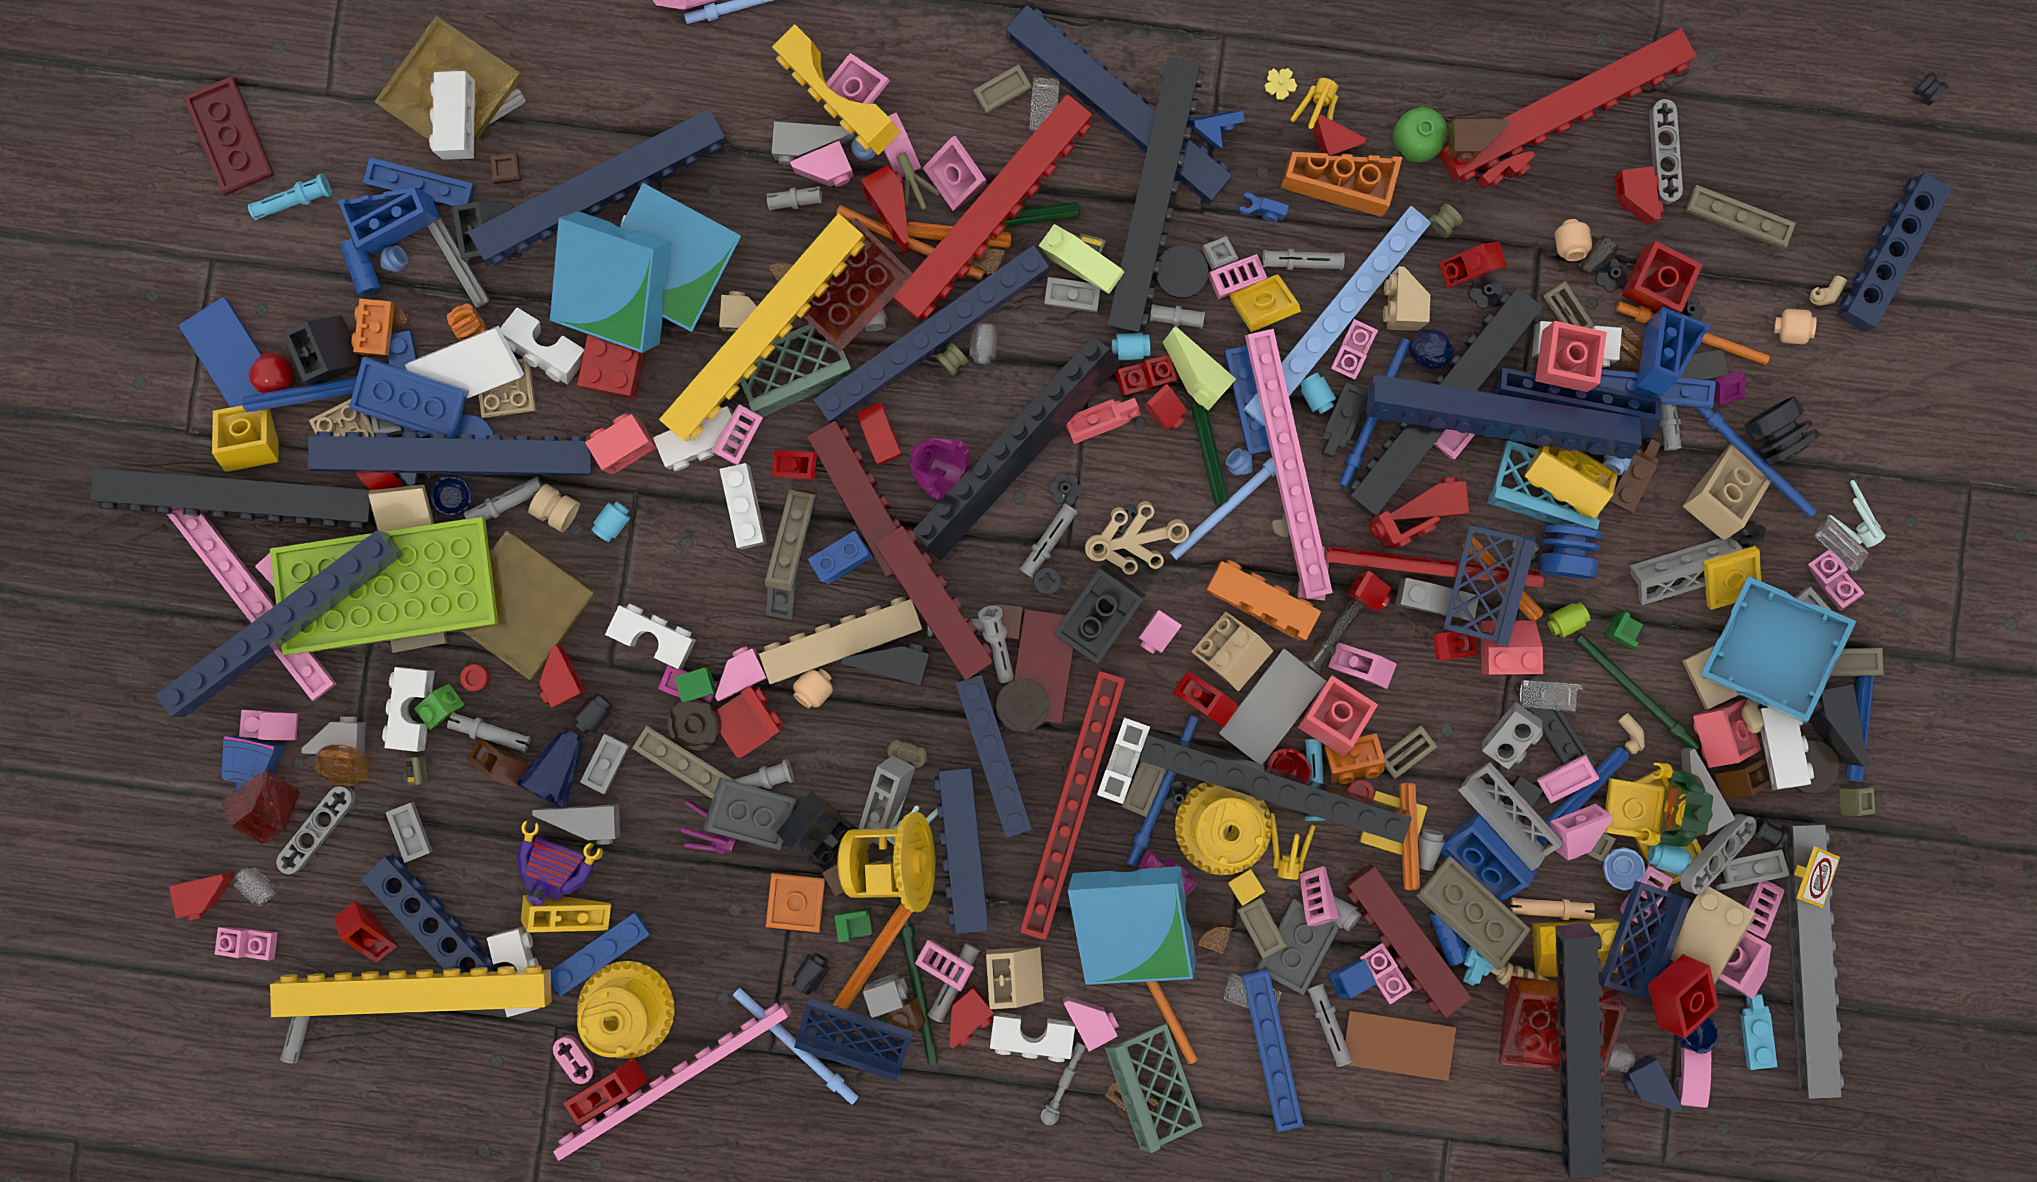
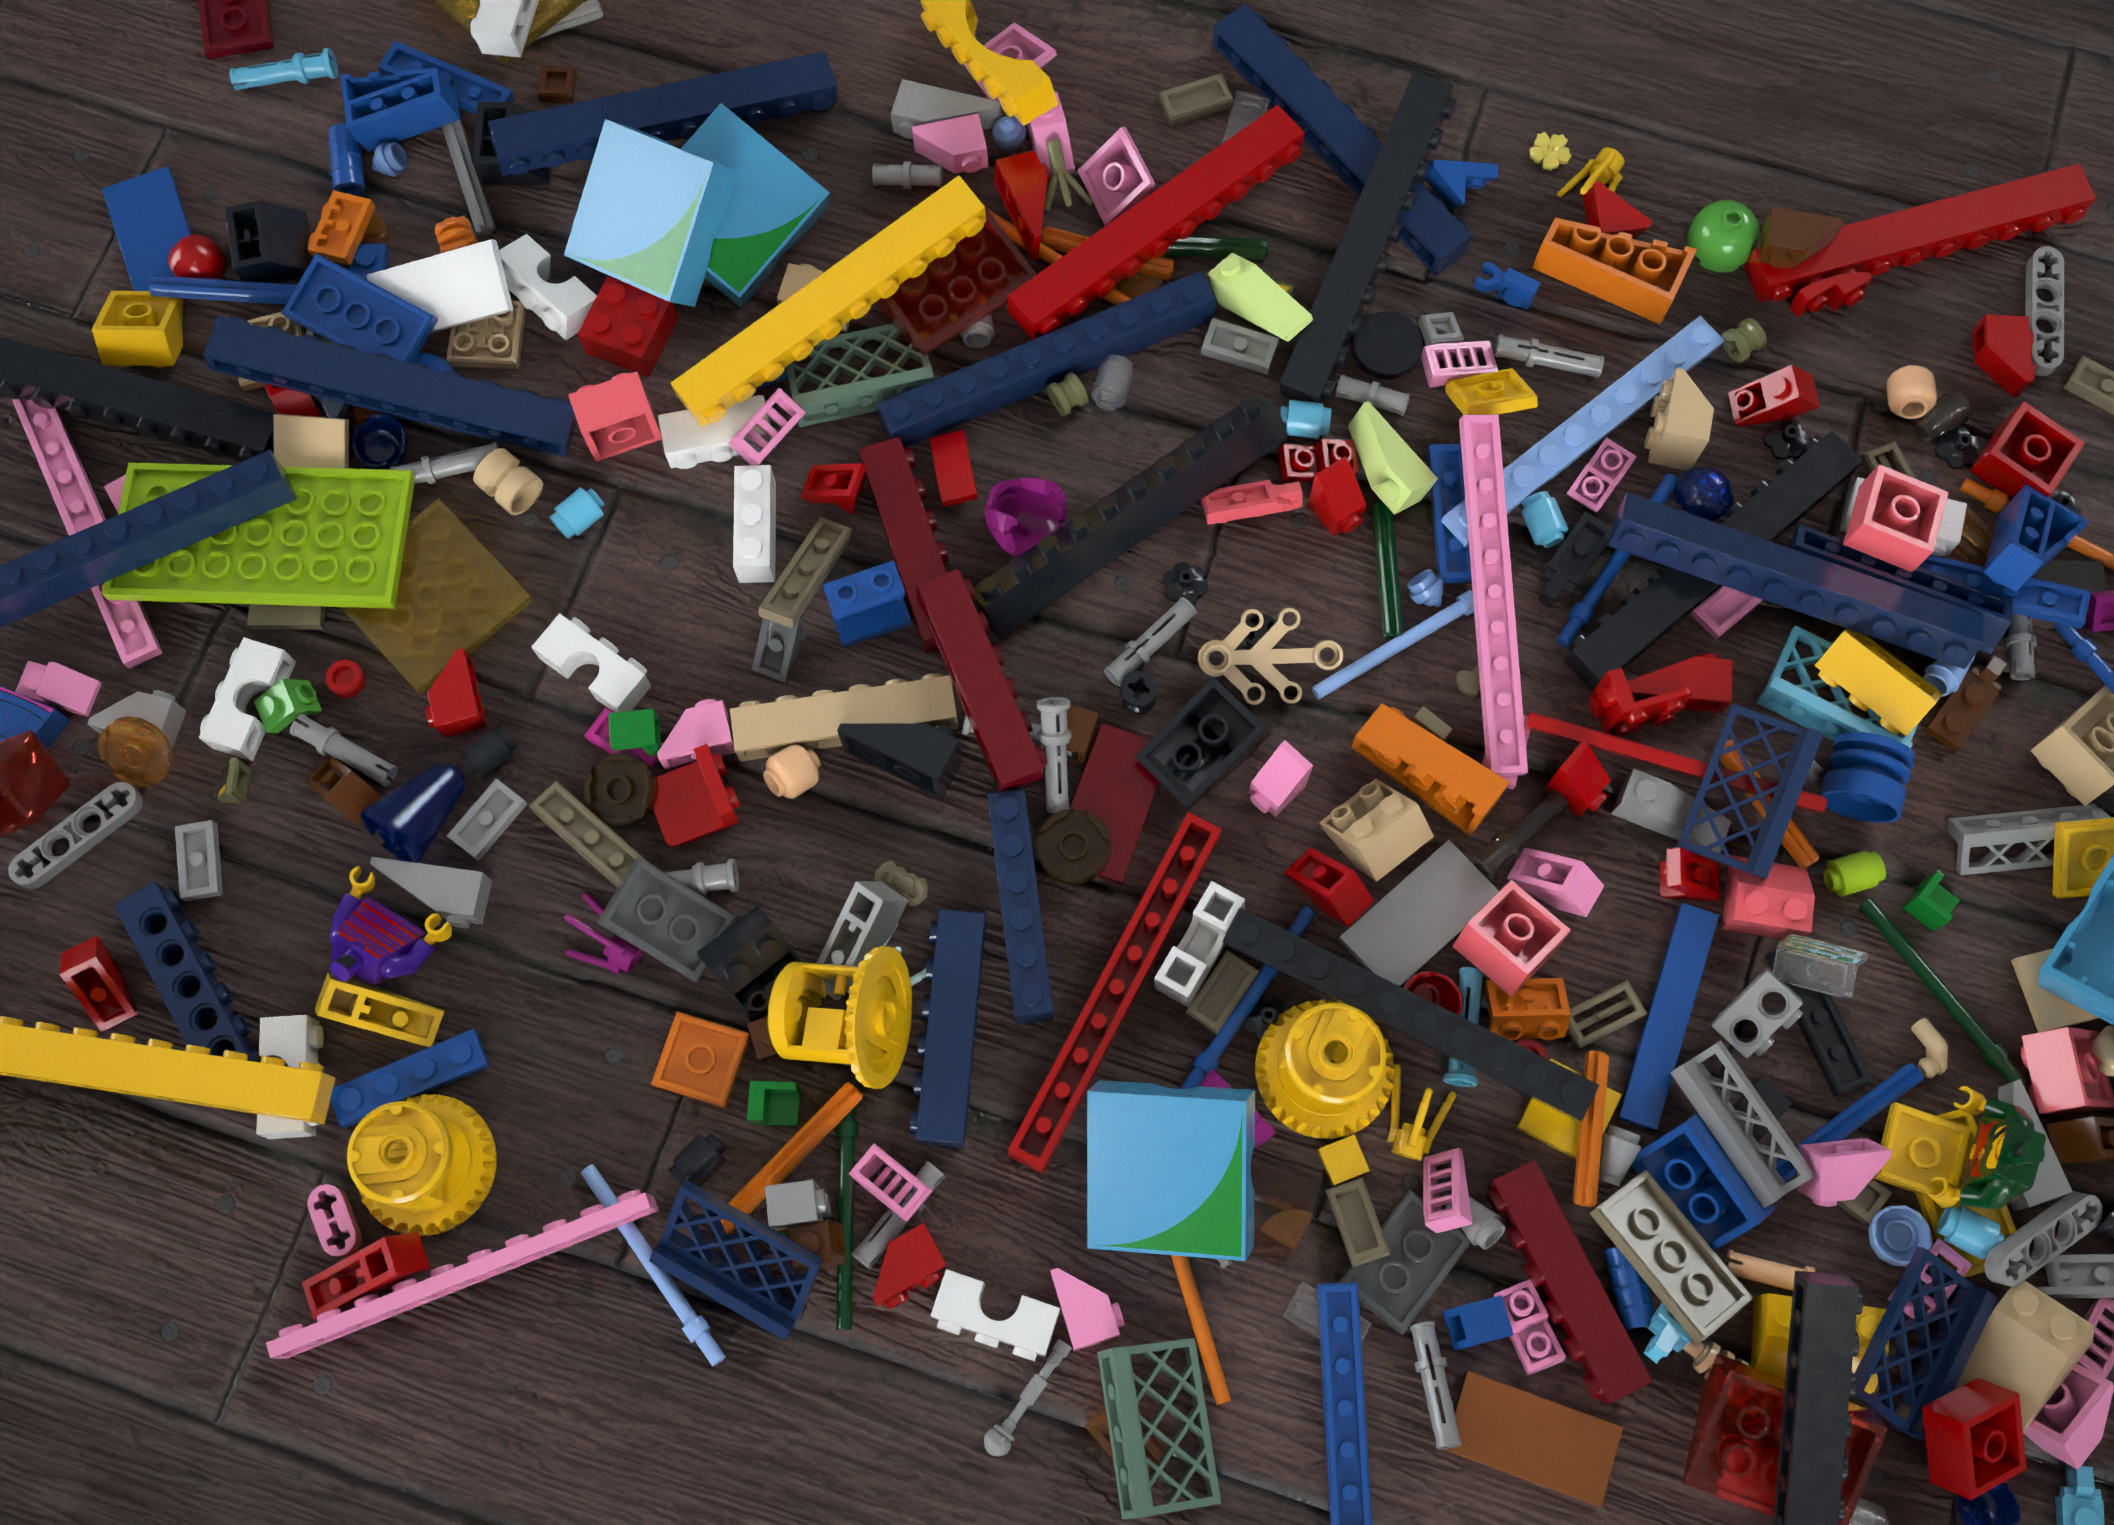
camera: 15 degrees right, 15 degrees down
(1014, 977) = (987, 1221): tan slope -> none
(1258, 568) = (1432, 724): none -> dark tan tile
(1452, 744) = (1667, 1017): none -> blue tile
(1568, 778) = (1831, 1092): bright pink tile -> none

